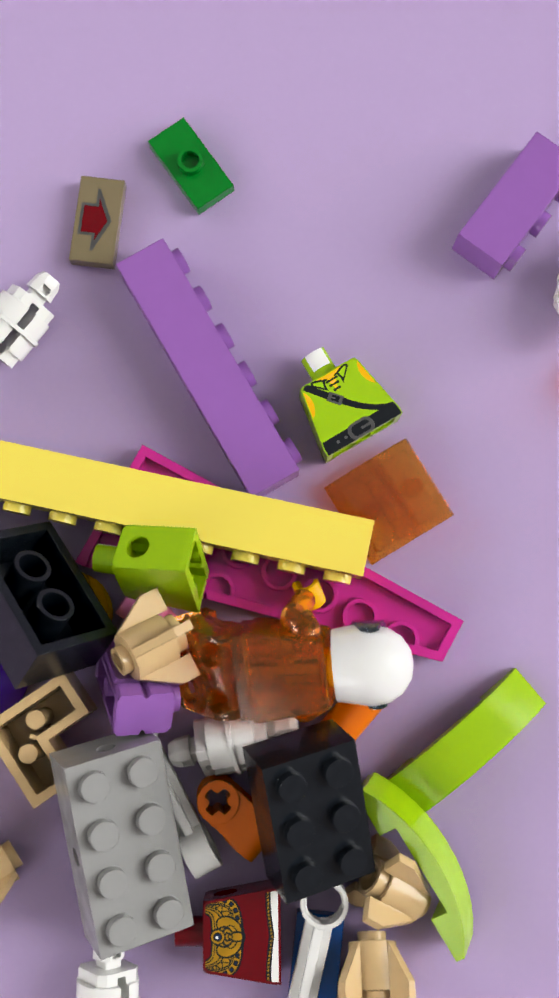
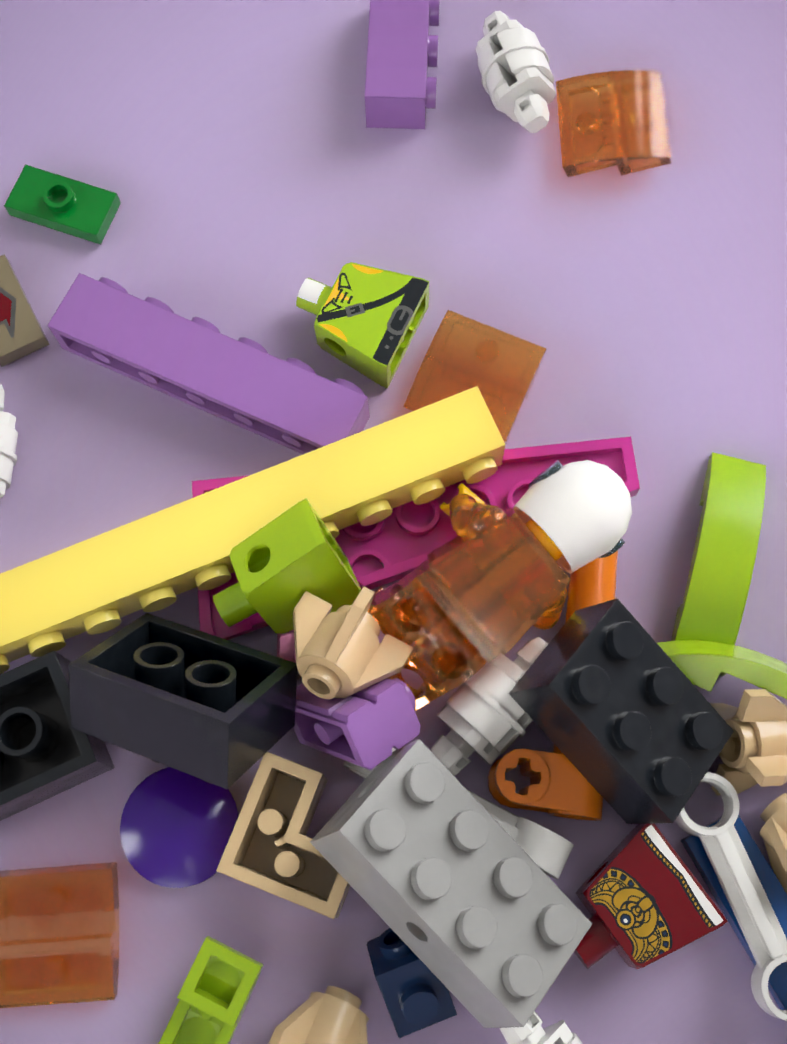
camera: 30 degrees left, 10 degrees down
(54, 876) = (407, 985): none -> dark blue bracket

